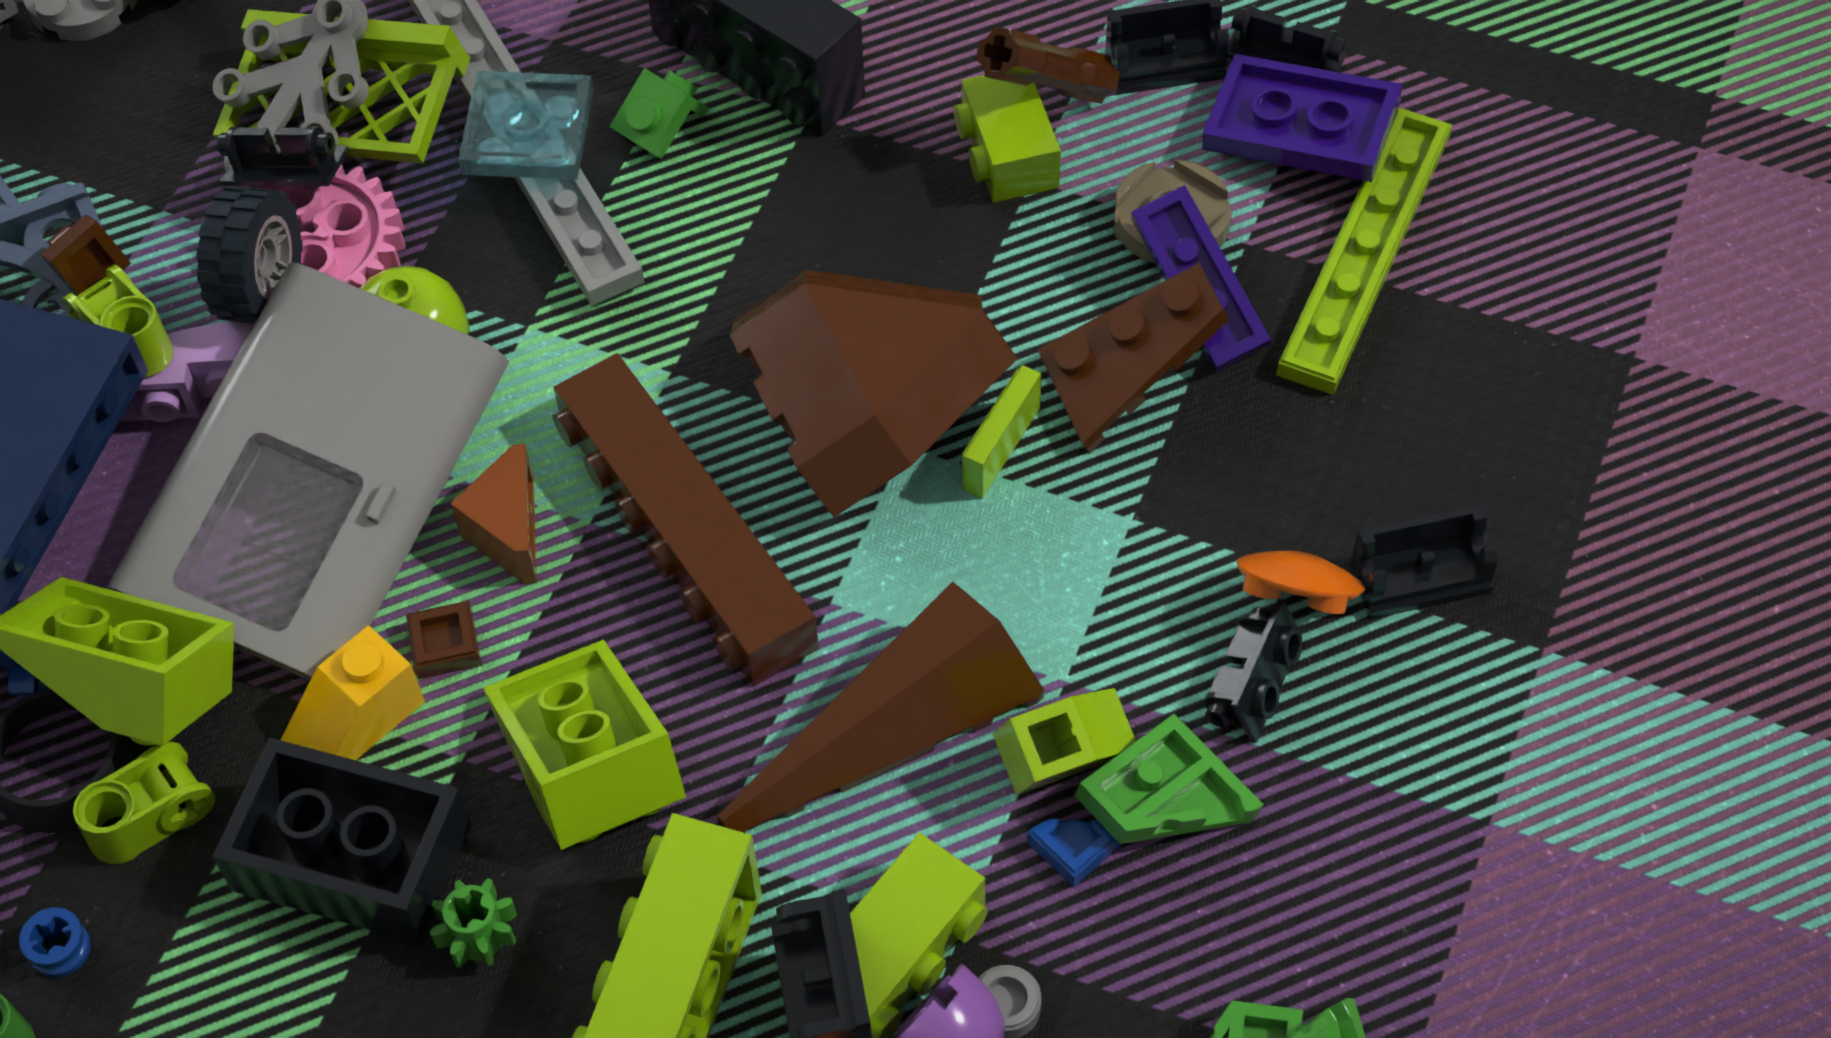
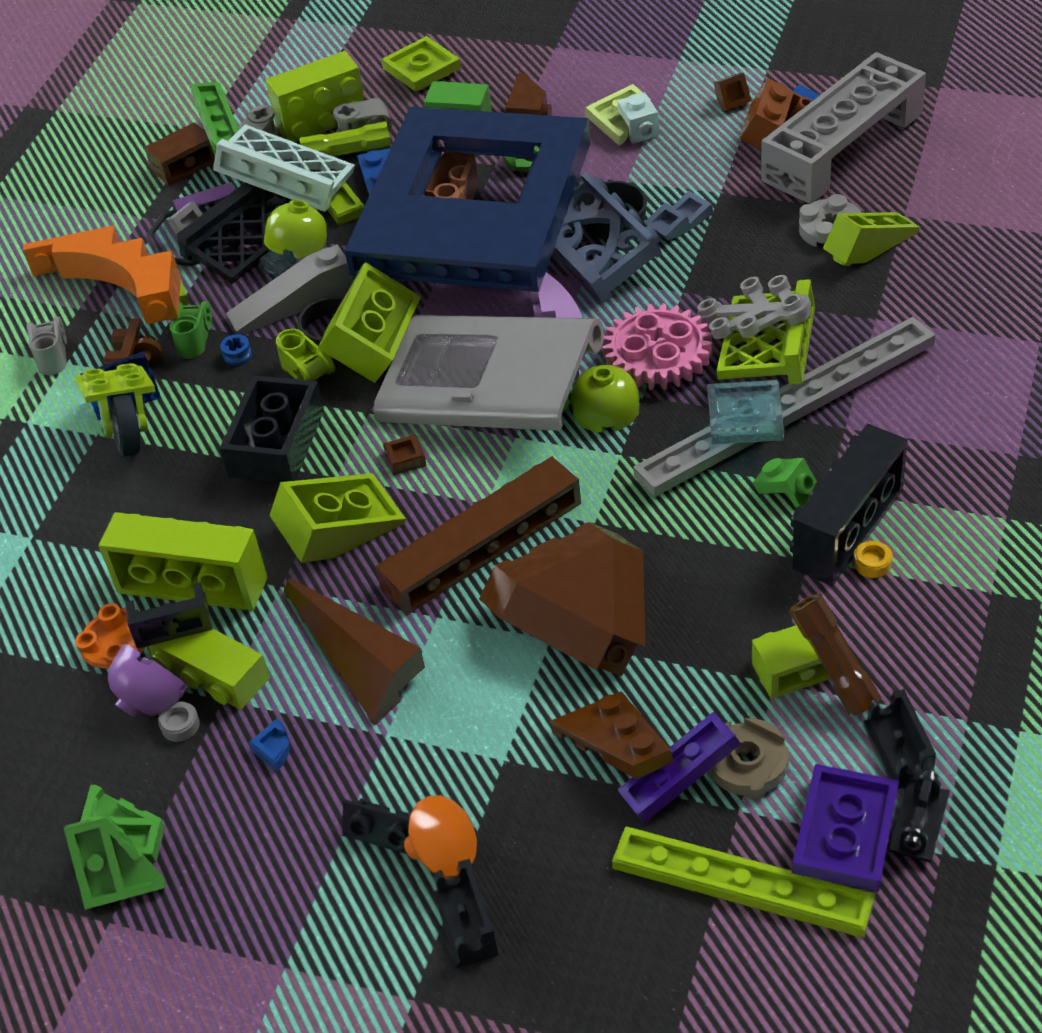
camera: 90 degrees right, 10 degrees down
(82, 254) = (605, 250): reddish brown tile -> none
(122, 307) = (568, 275): lime piece -> none
(245, 249) = (622, 295): black wheel -> none
(300, 159) = (694, 312): black hinge -> none
(355, 698) = (361, 424): yellow slope -> none
(480, 938) = (231, 490): bright green gear -> none
(499, 514) = (476, 460): dark orange slope -> none
(1001, 431) = (551, 676): lime tile -> none
(1063, 739) = (327, 723): lime slope -> none
(1166, 788) = (301, 780): bright green wing -> none

